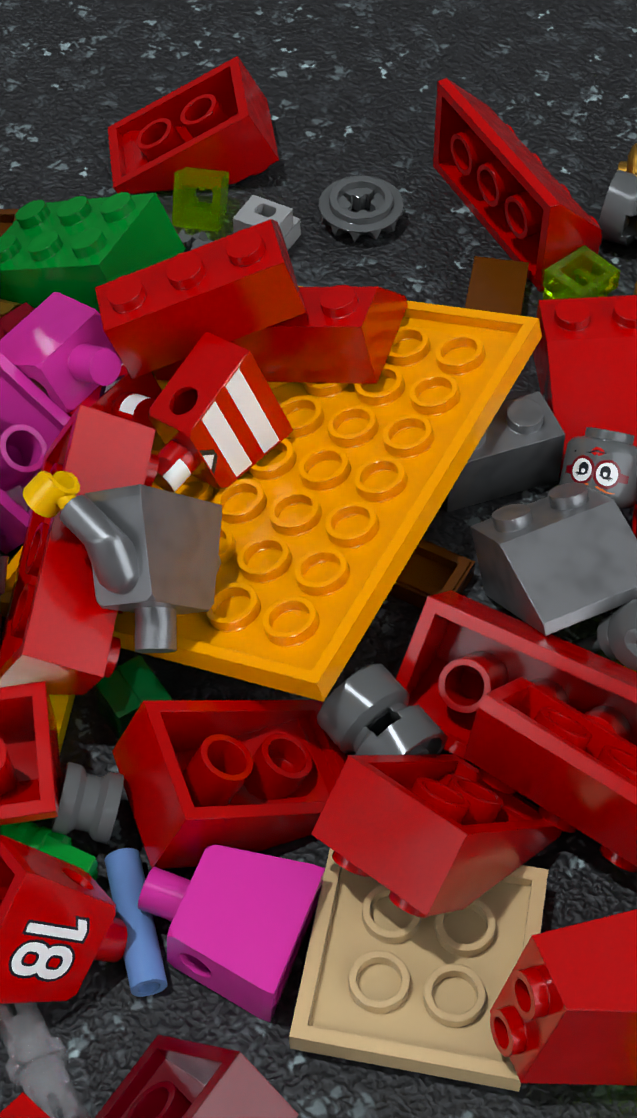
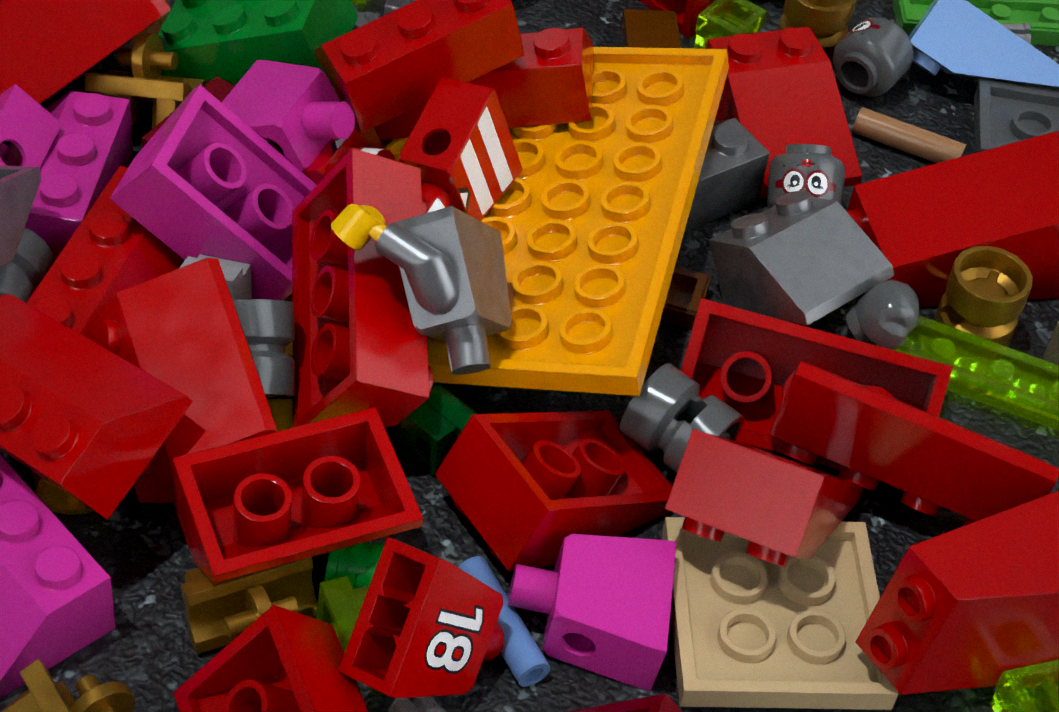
camera: 20 degrees left, 5 degrees down
(88, 802) = (444, 520): dark grey wheel -> none

